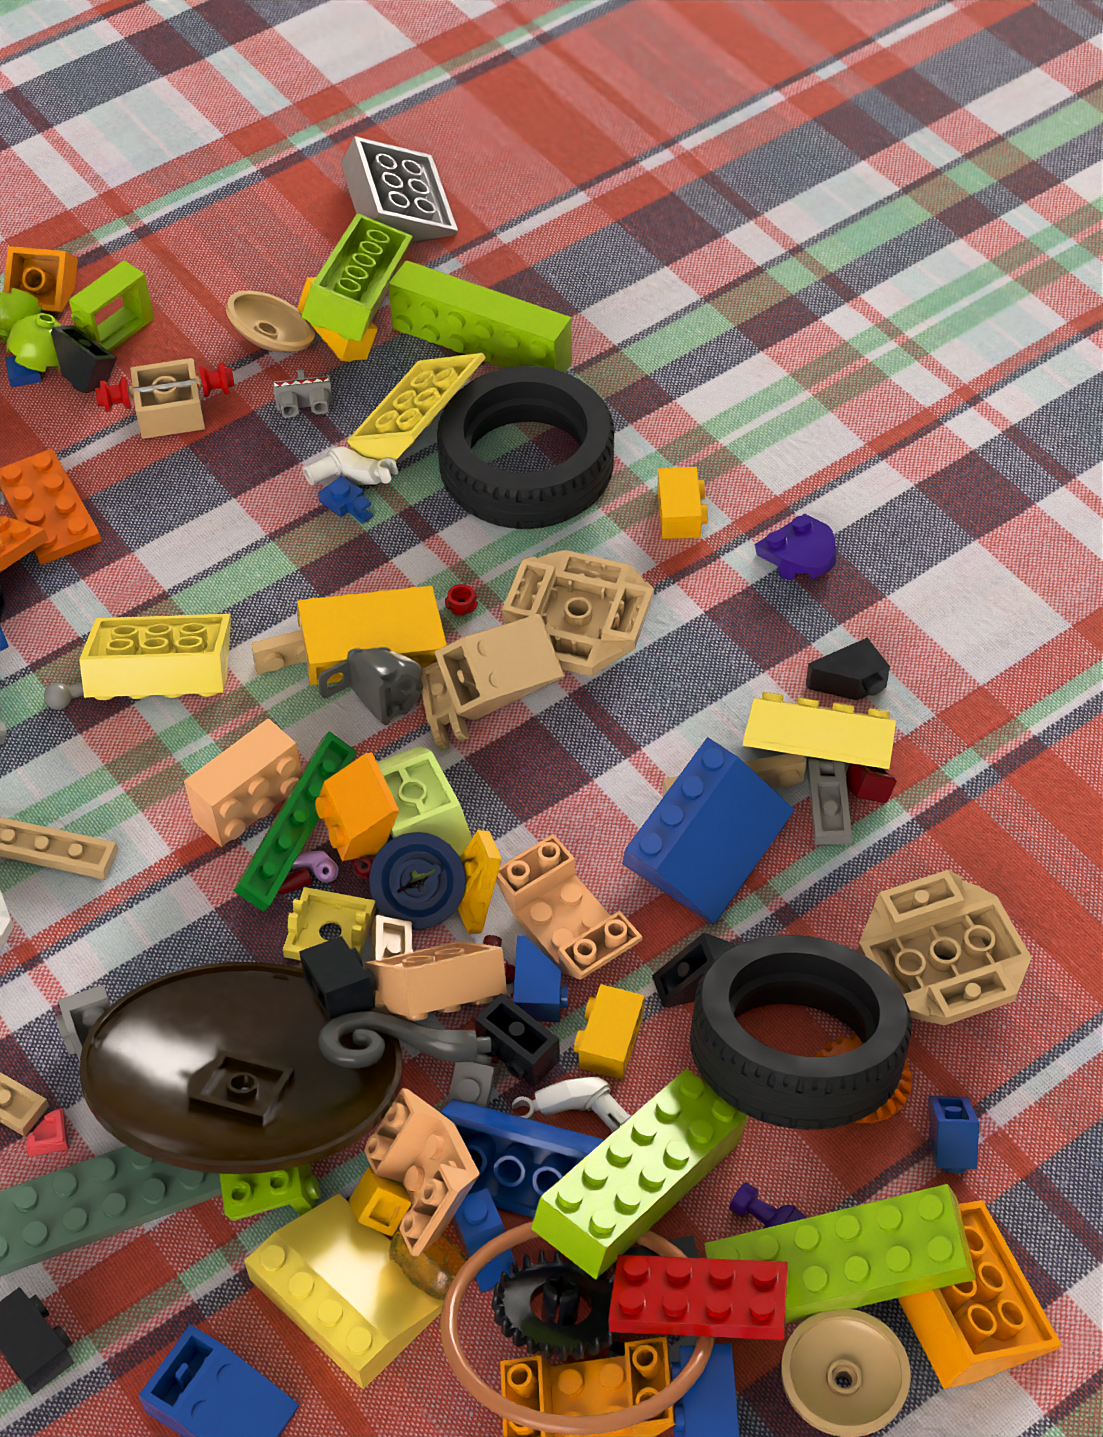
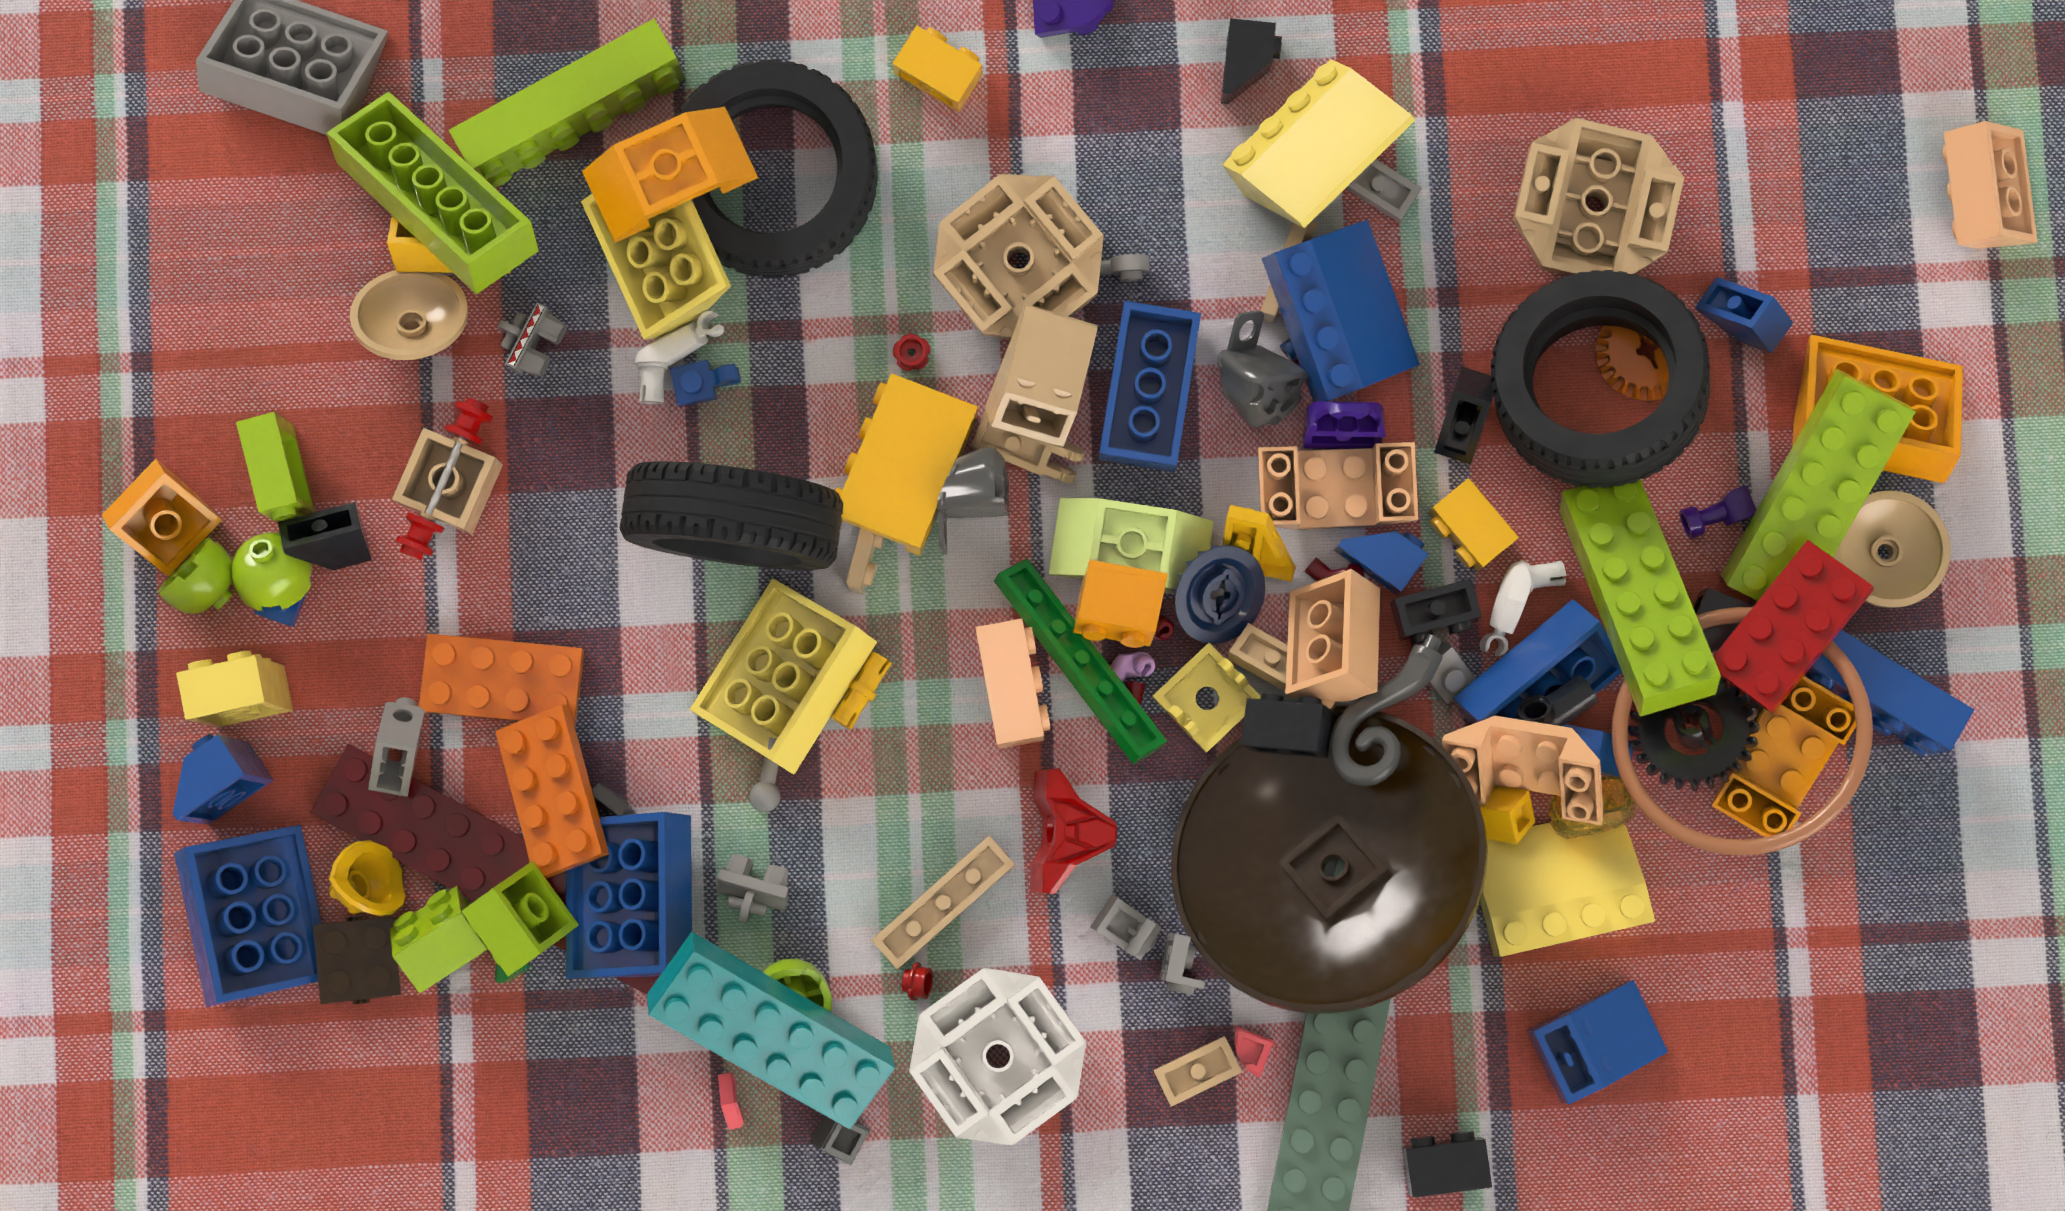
camera: 55 degrees left, 30 degrees up
(99, 969) = (1126, 927): none -> light grey bracket
(149, 890) = (1070, 831): none -> red piece
(179, 705) = (861, 690): none -> yellow pin
(244, 521) = (731, 515): none -> black tyre
(475, 362) = (667, 169): none -> light orange slope
(501, 1175) = (1559, 705): none -> black piece
(547, 746) = (1149, 386): none -> blue brick
(608, 810) = (1257, 380): none -> dark grey piece
(619, 884) = (1343, 425): none -> dark purple slope
(629, 684) = (1127, 267): none -> light grey plate

